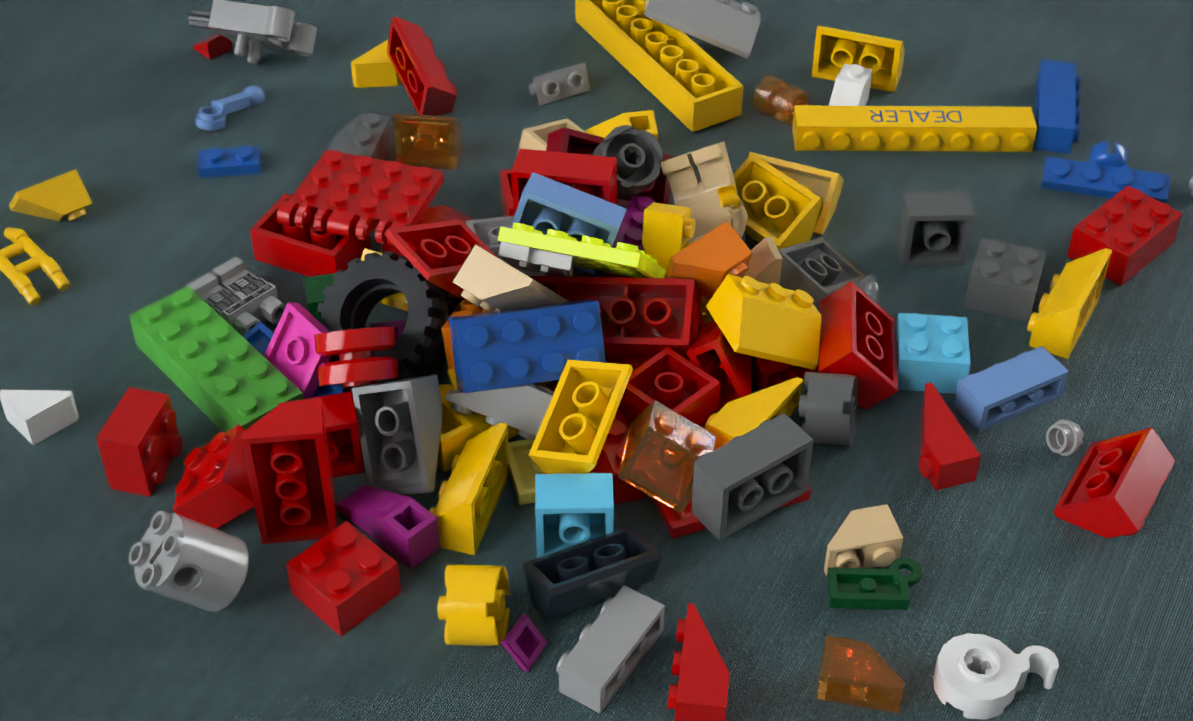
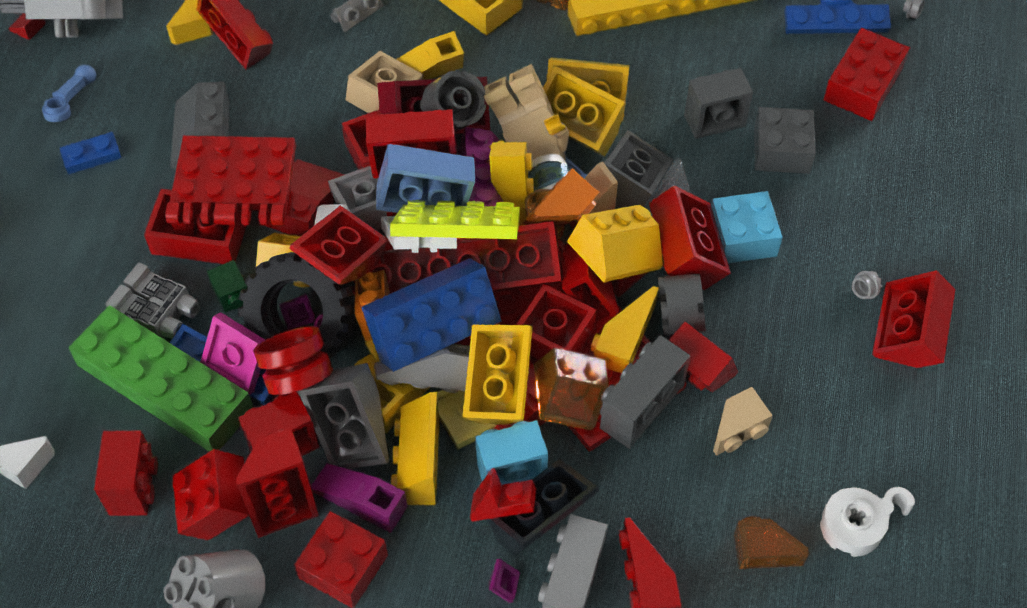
camera: 15 degrees left, 15 degrees up
(427, 140) = (263, 99): clear orange slope -> none
(475, 605) = (458, 561): yellow brick -> none
(500, 286) = (399, 268): tan slope -> none
(542, 548) = (502, 500): none -> red slope
(838, 466) = (708, 364): none -> red slope
(872, 587) = (756, 461): dark green hinge -> none
(945, 449) = (777, 316): red slope -> none
(1010, 388) = (813, 246): medium blue brick -> none
(1069, 304) = (841, 154): yellow slope -> none

